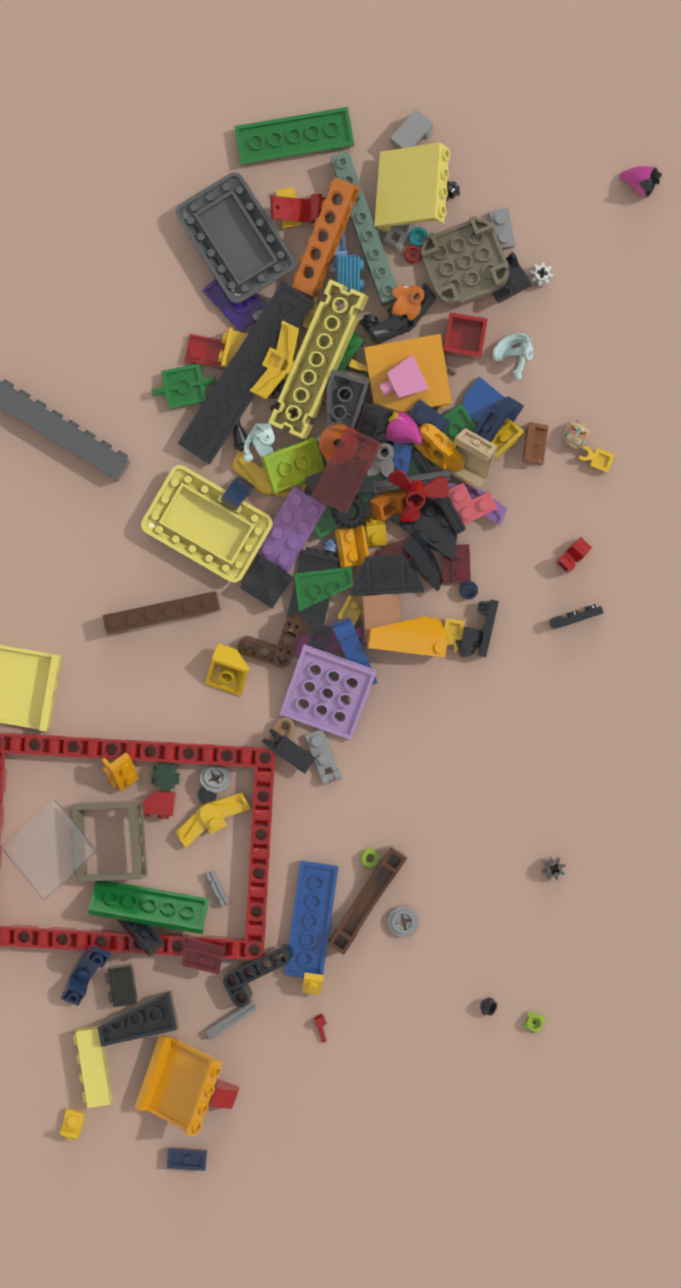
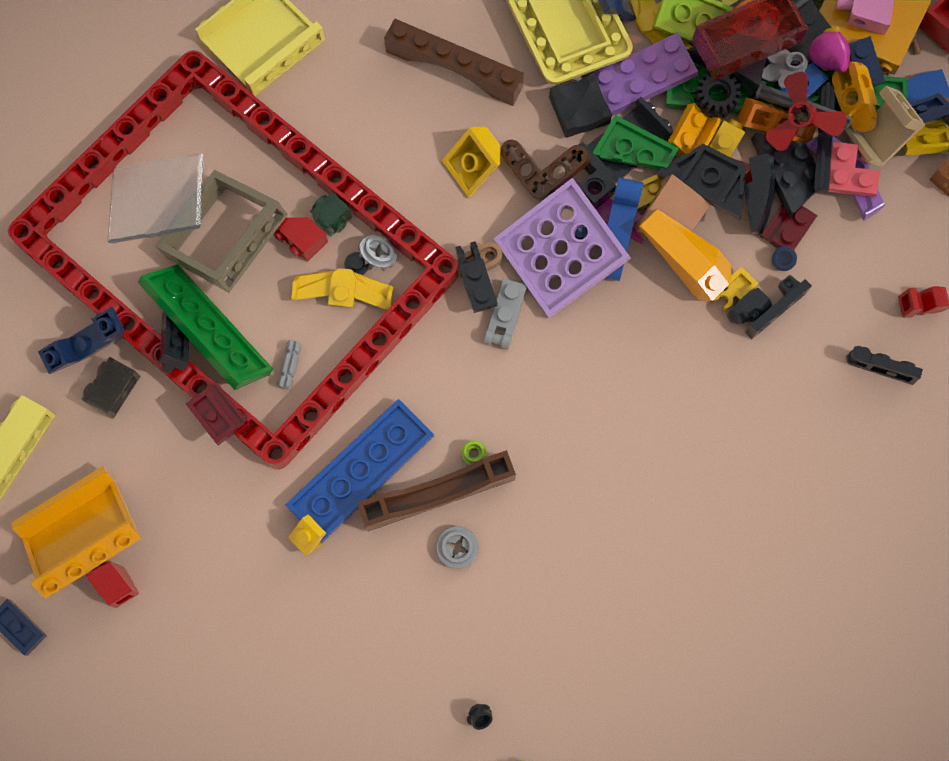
camera: 35 degrees right, 15 degrees down
(120, 772) = (289, 174): light orange bracket -> none
(147, 1020) = (102, 440): black wedge -> none
(230, 1020) = (191, 512): light grey axle -> none
(259, 969) = (262, 478): black beam -> none
(319, 1022) = (280, 588): red hand -> none
(330, 546) = (672, 116): medium blue plate -> none
(554, 873) = (669, 606): dark grey gear -> none

